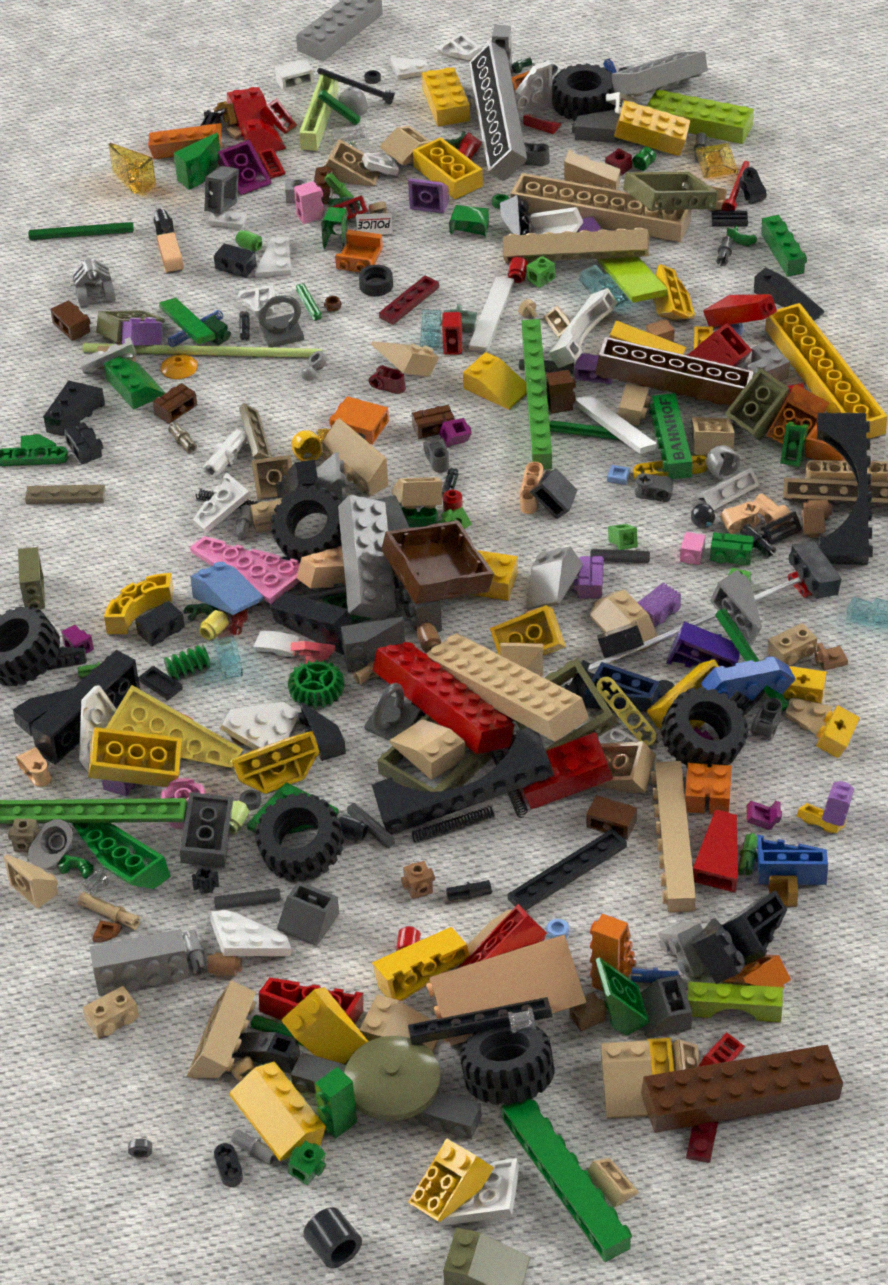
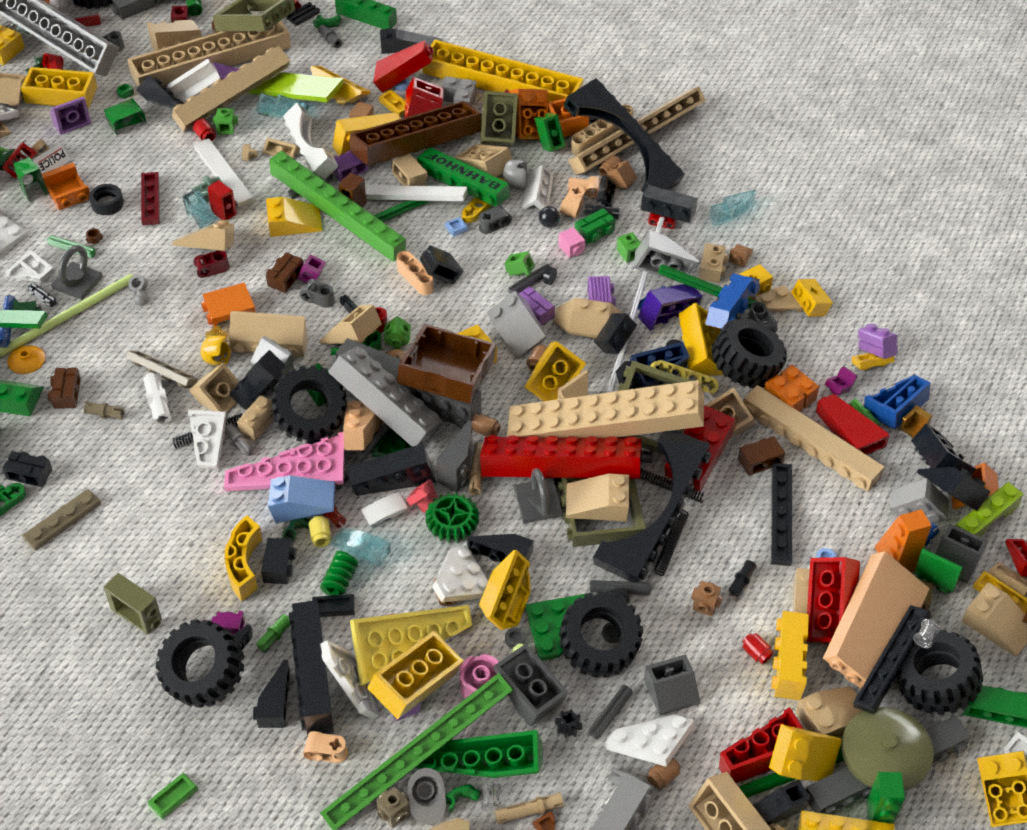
camera: 50 degrees left, 5 degrees up
(637, 562) = (549, 275): none -> black tile

